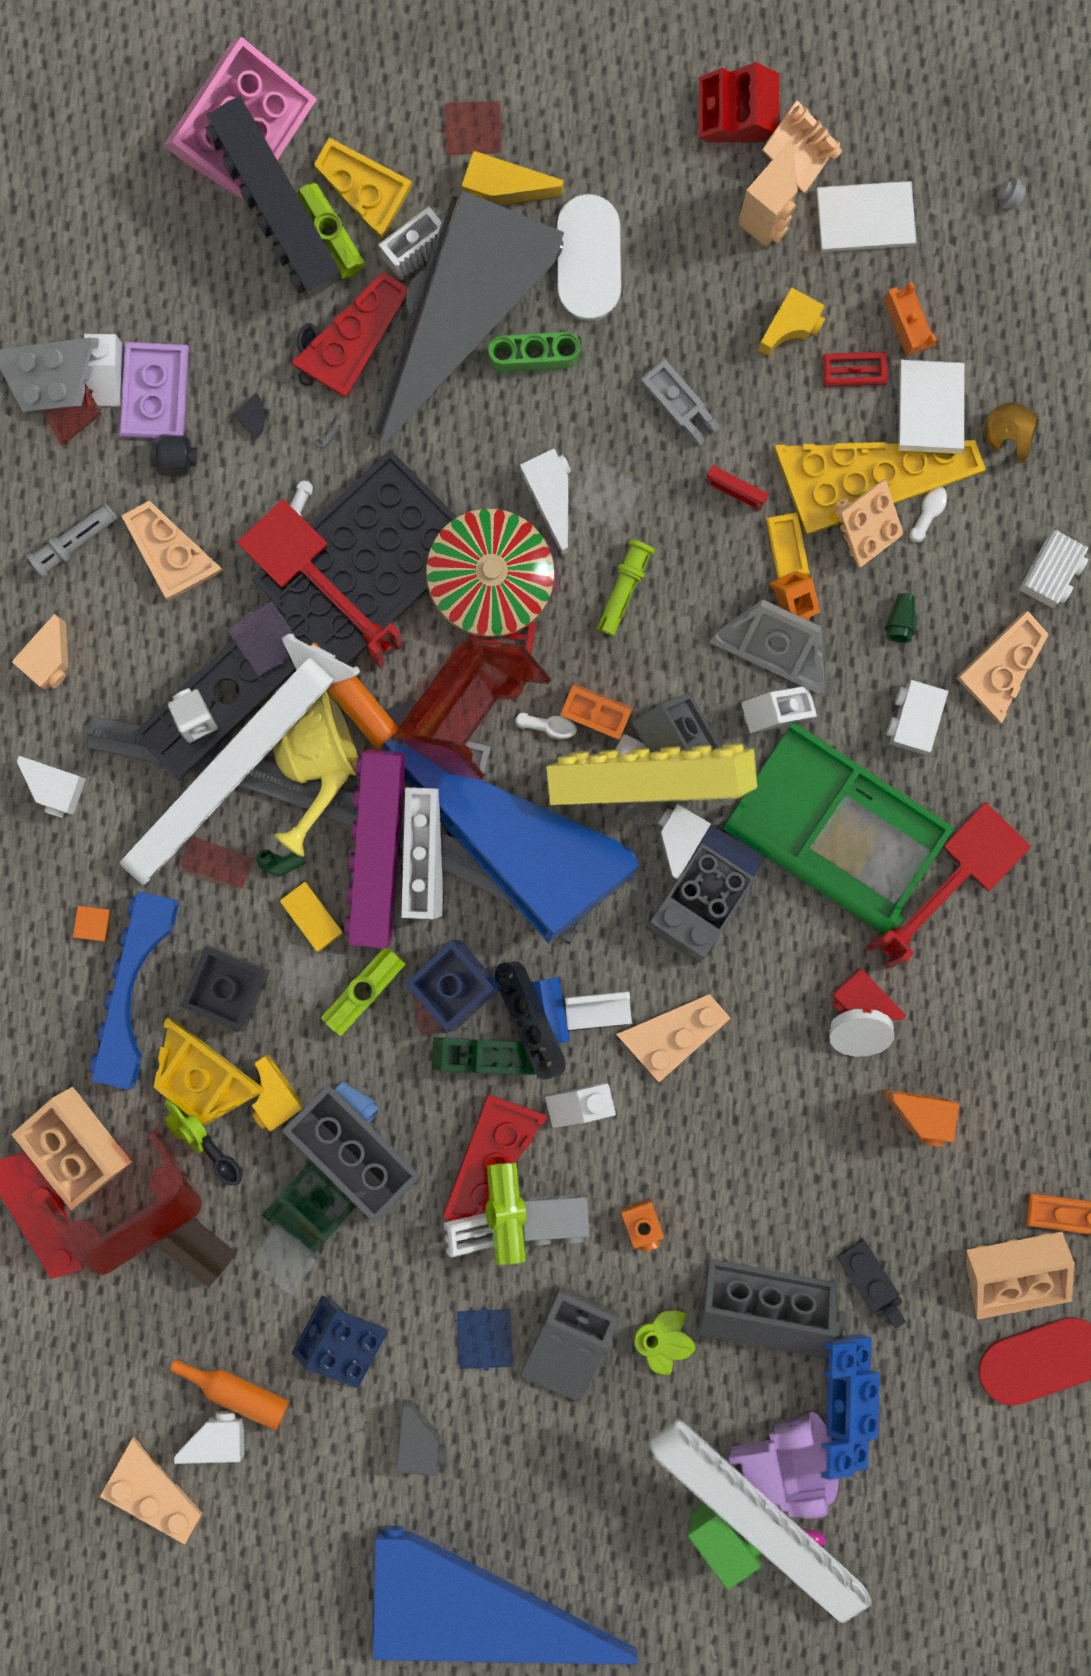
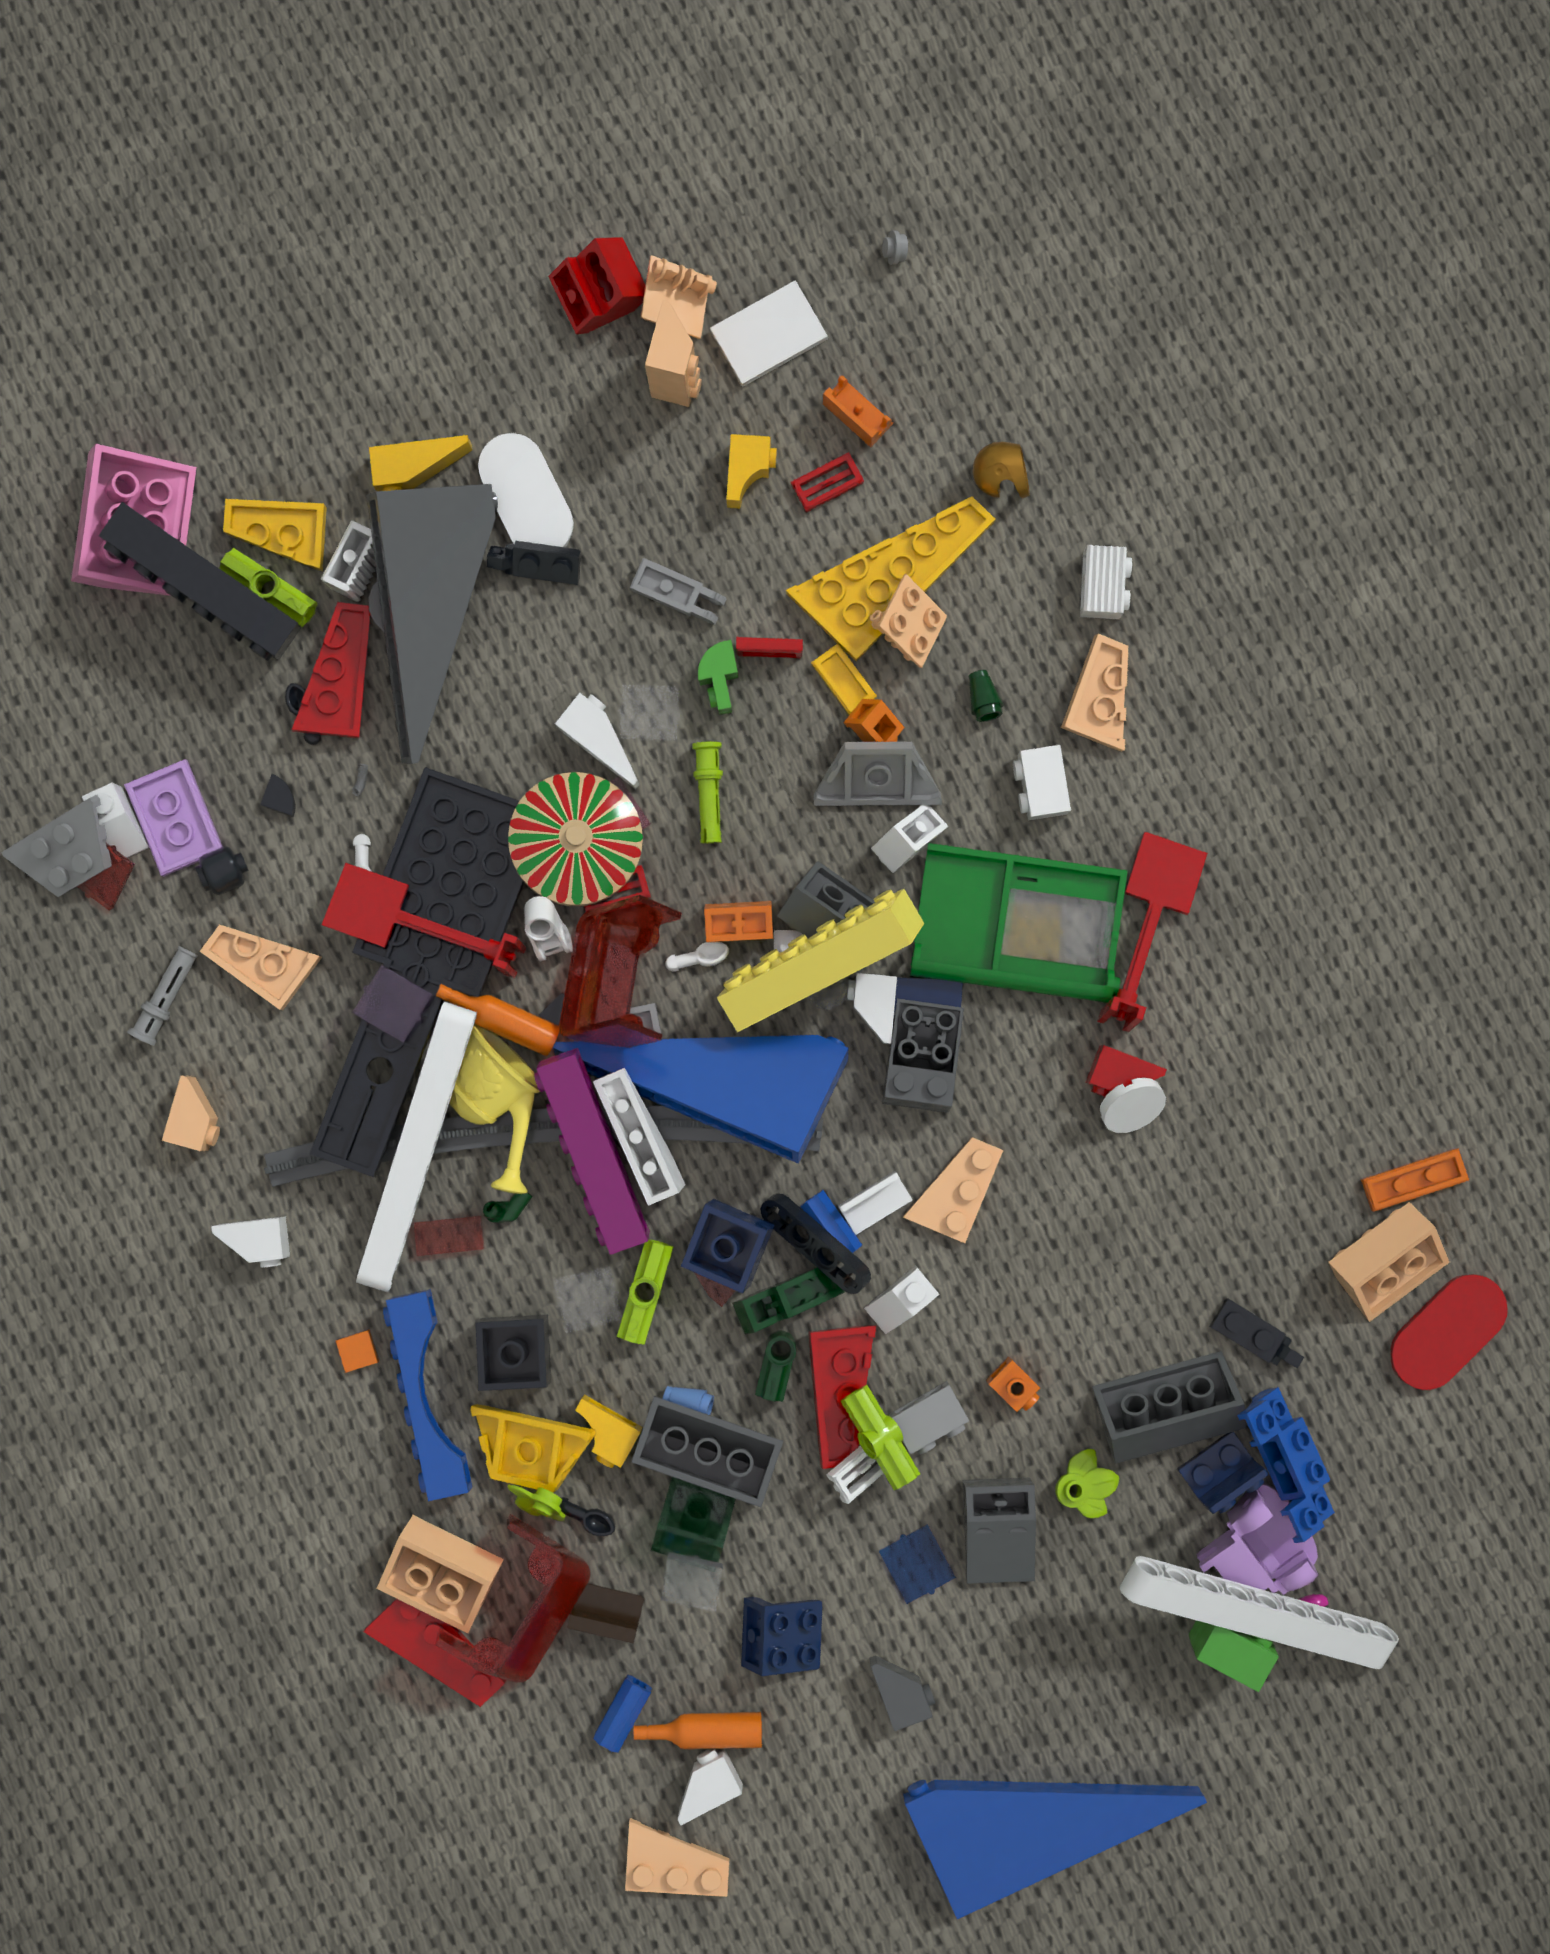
camera: 20 degrees left, 0 degrees up
(170, 1344) = (622, 1713): none -> blue axle
(191, 715) = (357, 1110): white slope -> none
(301, 652) = (433, 1000): white tile -> none
(311, 917) = (562, 1244): yellow tile -> none
(427, 637) = (545, 928): none -> white piece
(443, 1111) = (775, 1368): none -> dark green piece
(473, 127) = (357, 424): clear red piece -> none
(547, 342) = (500, 609): bright green beam -> none
(571, 317) = (537, 561): none -> black hinge
(681, 483) = (716, 667): none -> bright green brick
(786, 1387) = (1222, 1473): none -> dark blue bracket
(925, 1116) = (1231, 1154): orange slope -> none
(931, 407) = (916, 484): white tile -> none
(931, 506) = (961, 577): white piece -> none

